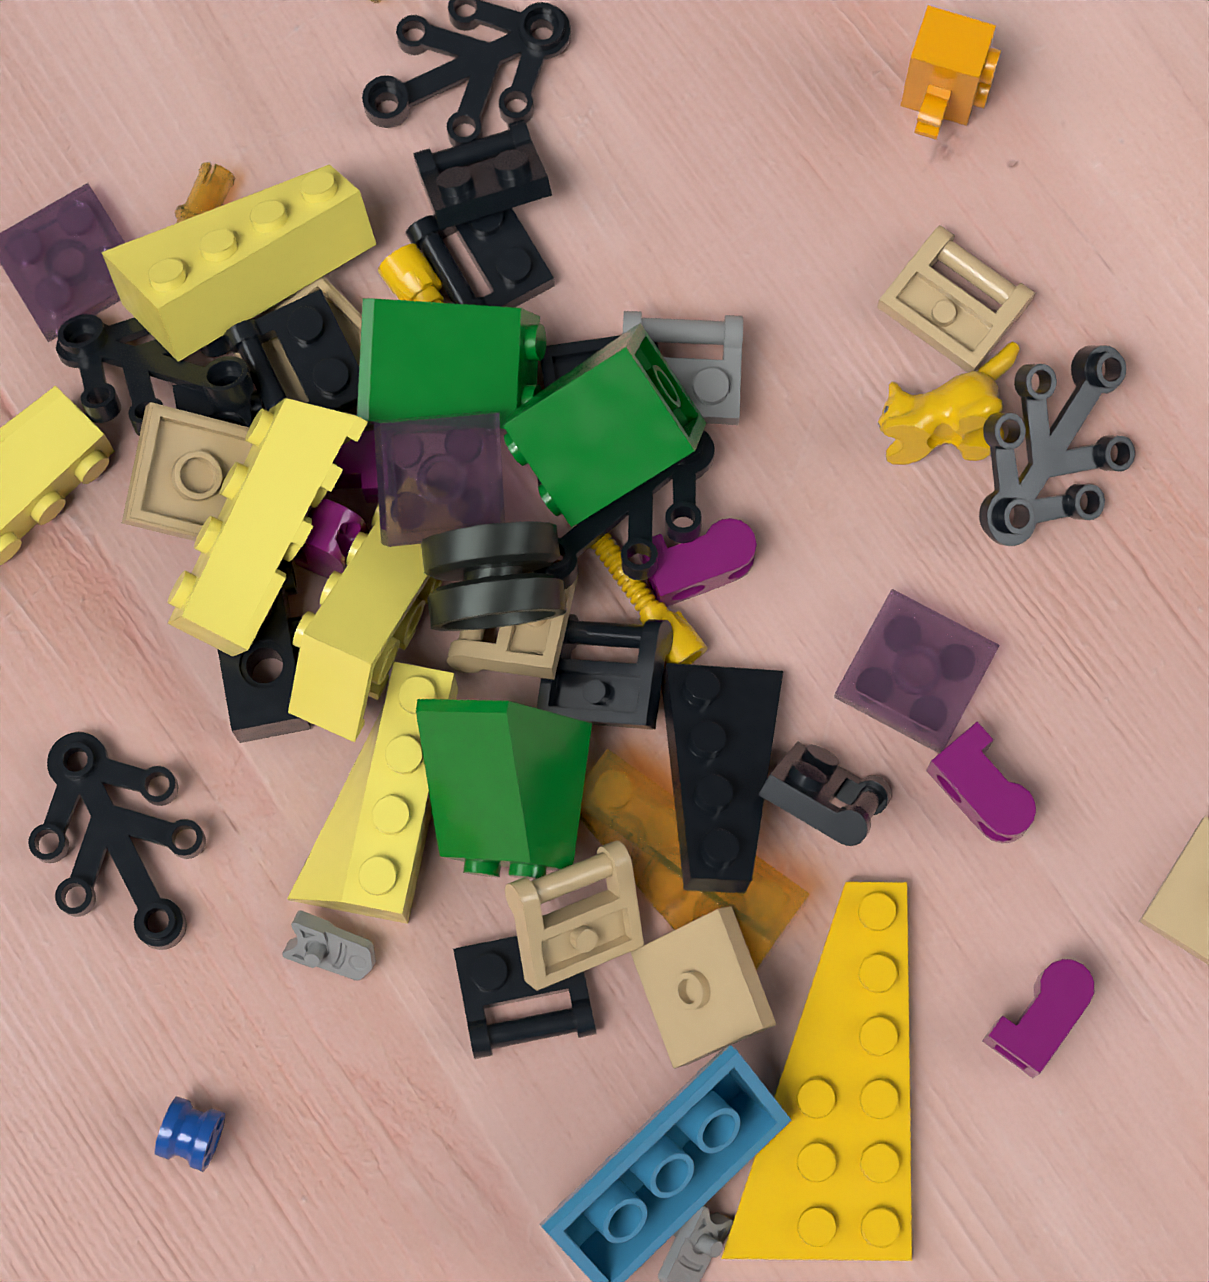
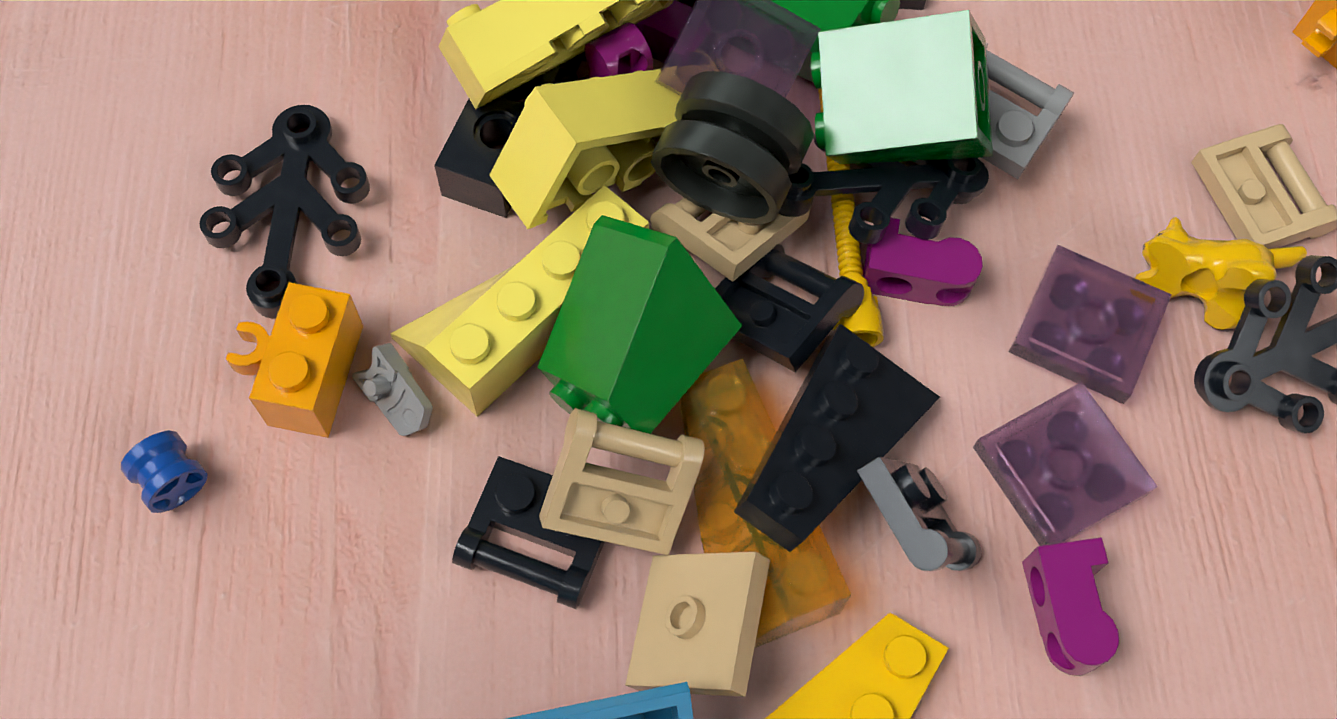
camera: 25 degrees right, 10 degrees down
(235, 969) = (303, 360): none -> light orange brick
(871, 525) = (1090, 324): none -> clear purple plate

